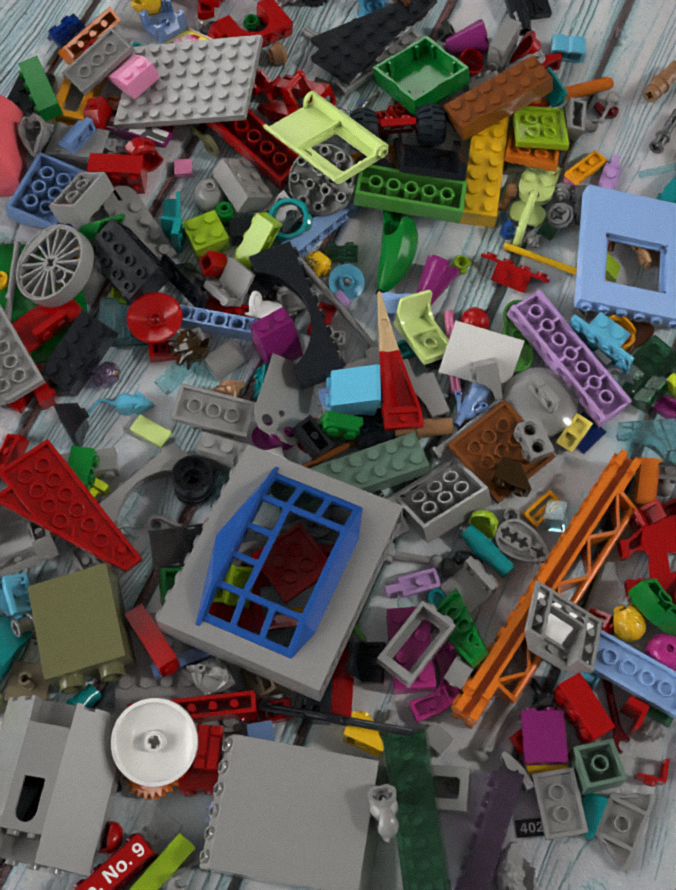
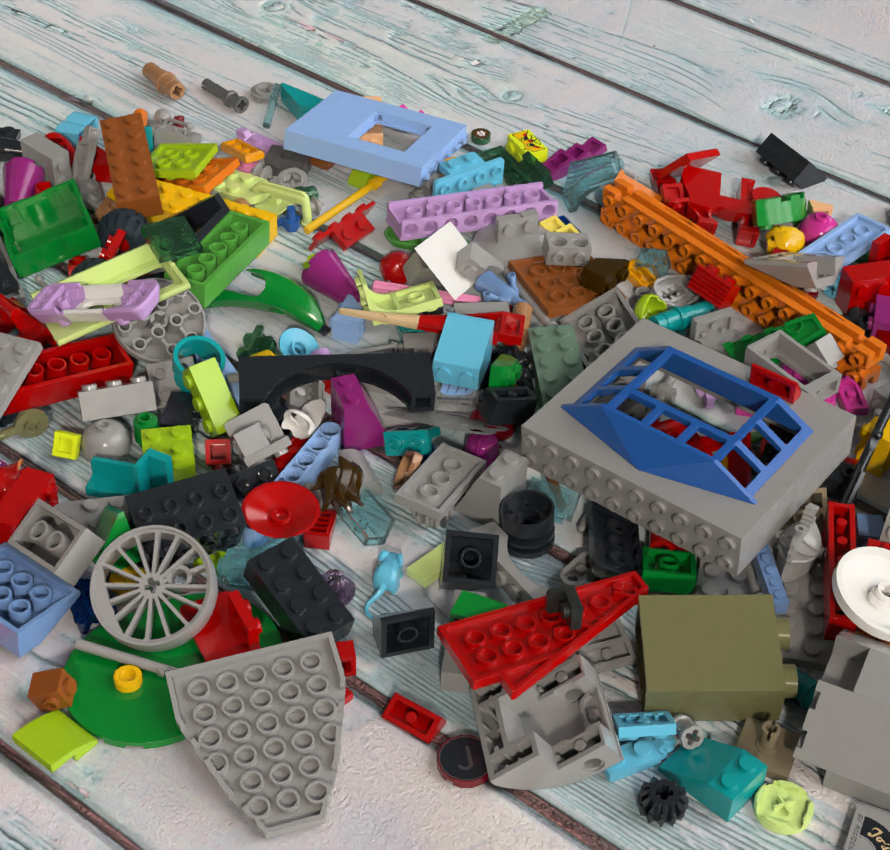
camera: 75 degrees left, 25 degrees down
(77, 517) = (567, 603): none -> pearl dark grey bracket
(137, 448) = (469, 561): none -> black slope
(152, 641) = (766, 576): red brick -> none
(183, 167) = (45, 461): bright pink tile -> none
(200, 173) = (66, 444): none -> neon yellow tile
(216, 277) = (251, 440): none -> light grey slope
(299, 113) = (70, 302): none -> lavender piece
(335, 619) = (774, 383): none -> red slope
(382, 152) = (171, 239): none -> clear green plate
(522, 567) = (713, 286): none -> red brick

